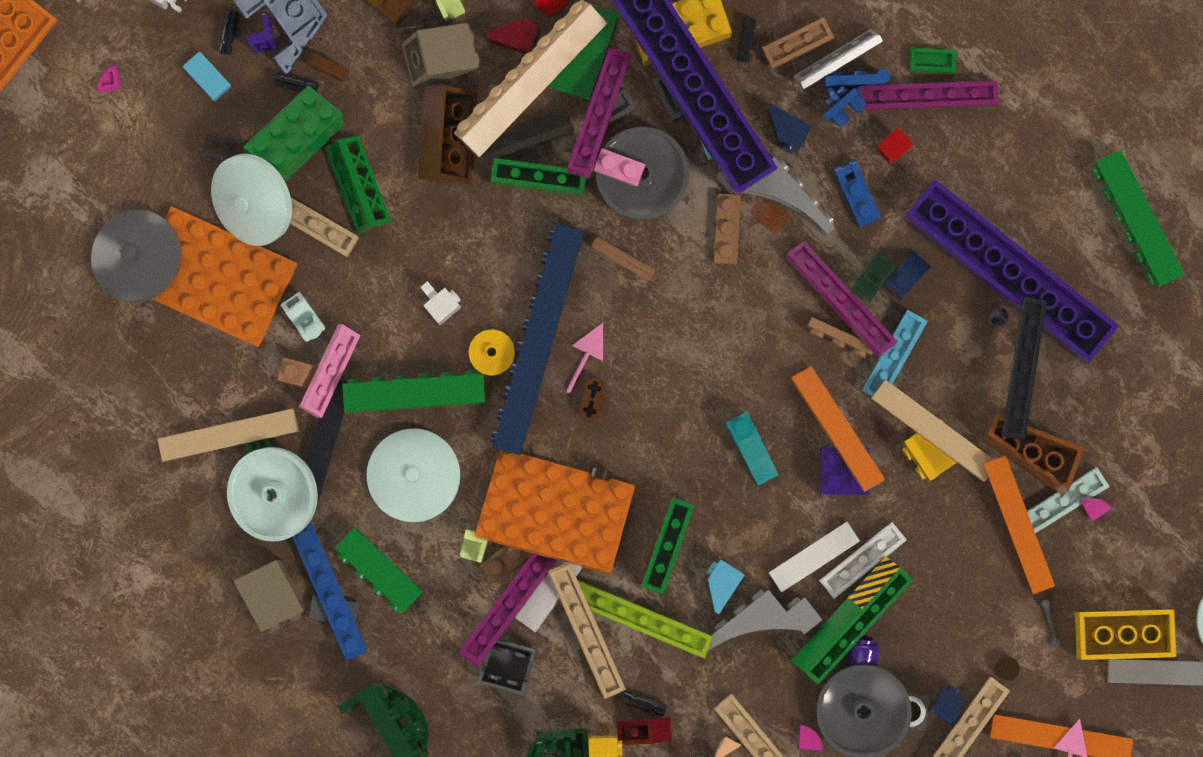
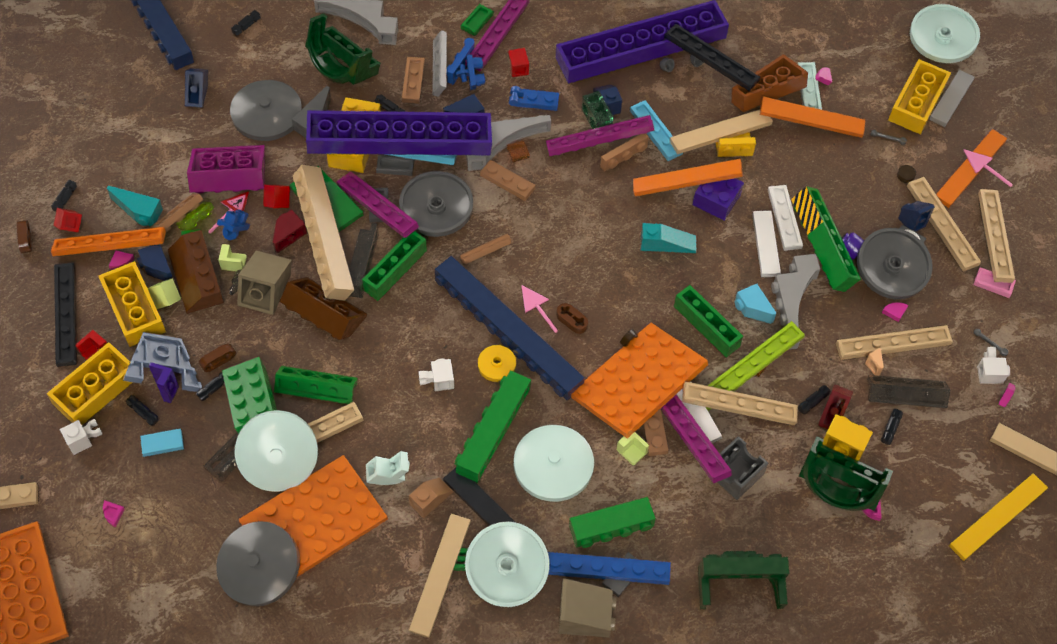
camera: 65 degrees left, 25 degrees down
(329, 371) = (440, 472): bright pink plate -> none
(619, 167) = (425, 209): bright pink plate -> none

